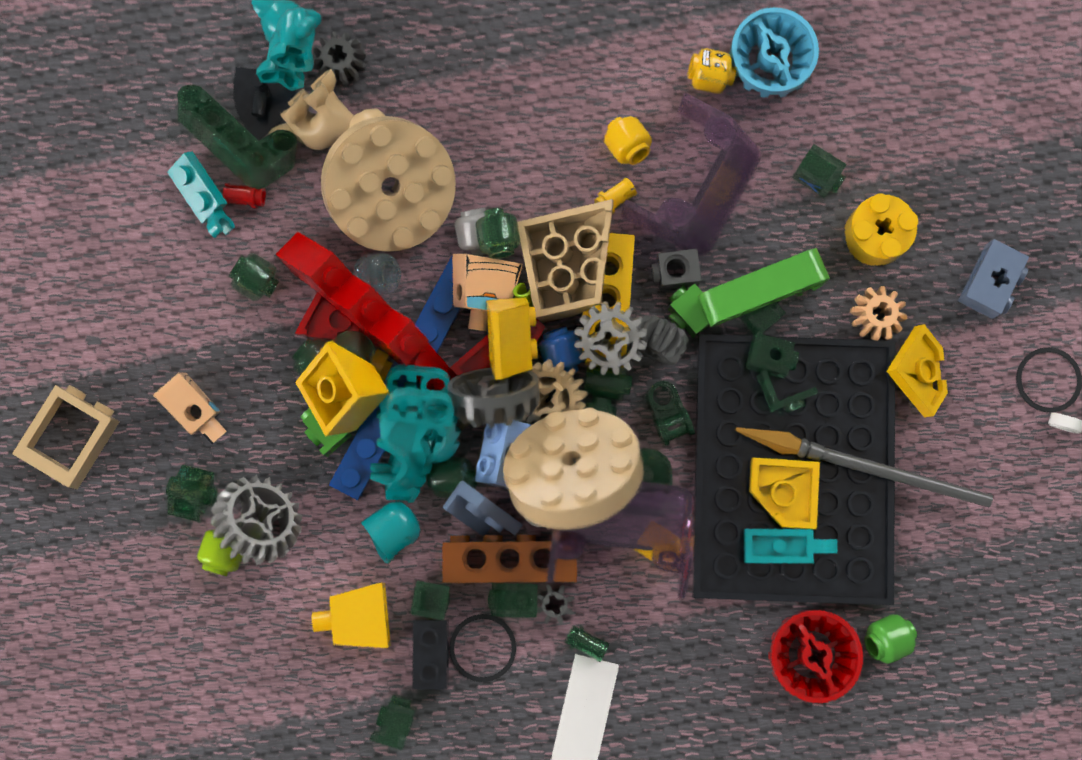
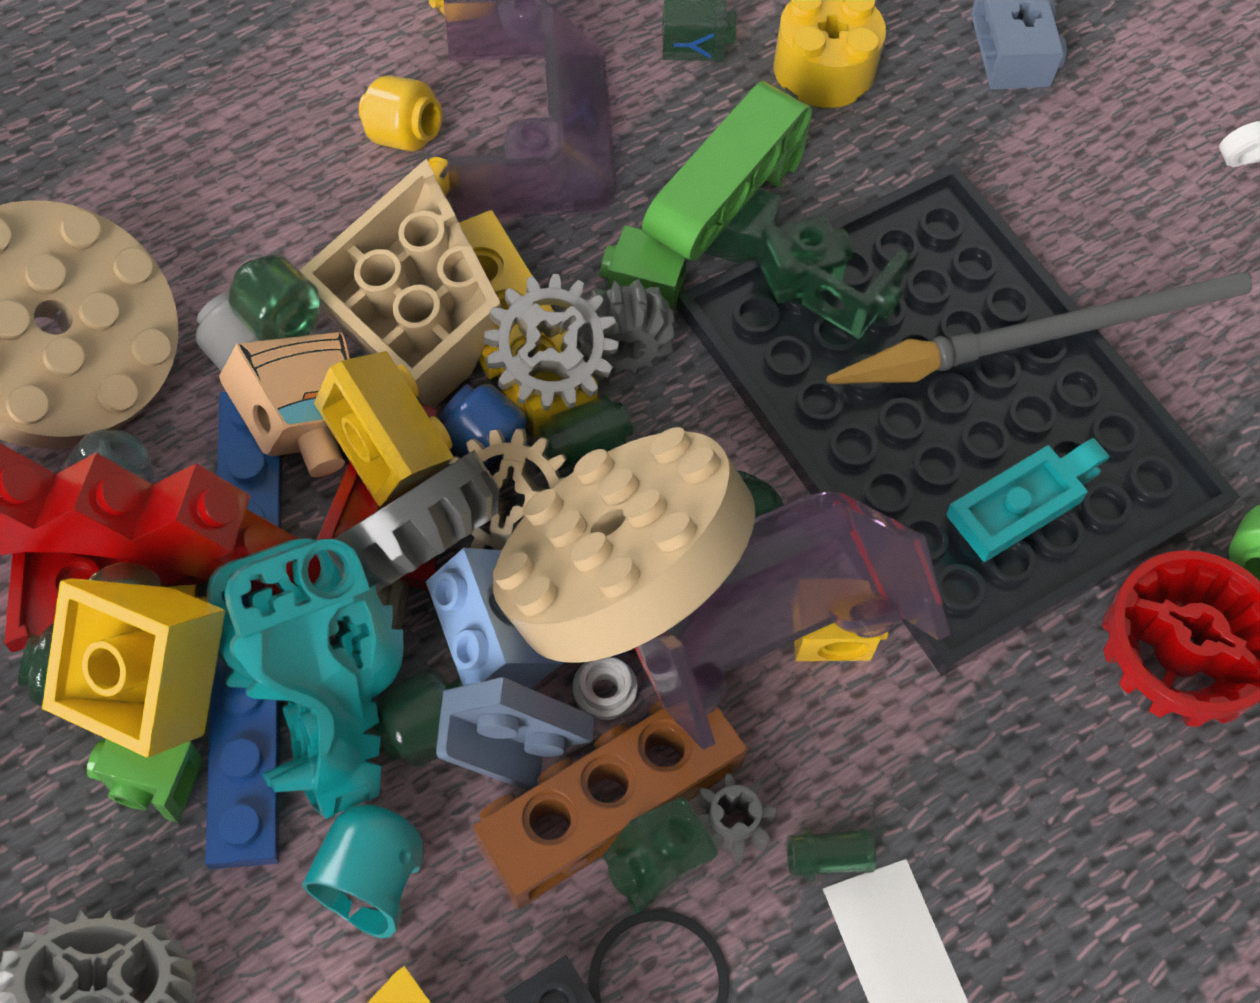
camera: 35 degrees left, 20 degrees down
(430, 600) = (513, 939): clear green brick -> none
(669, 414) = (712, 415): clear green piece -> none
(686, 259) = (582, 229): dark grey brick -> none
(787, 490) = (965, 420): yellow plate -> none
(868, 304) = (904, 143): light nougat gear -> none
(917, 368) = (1008, 179): yellow plate -> none
(1028, 400) = (1132, 107): black piece -> none

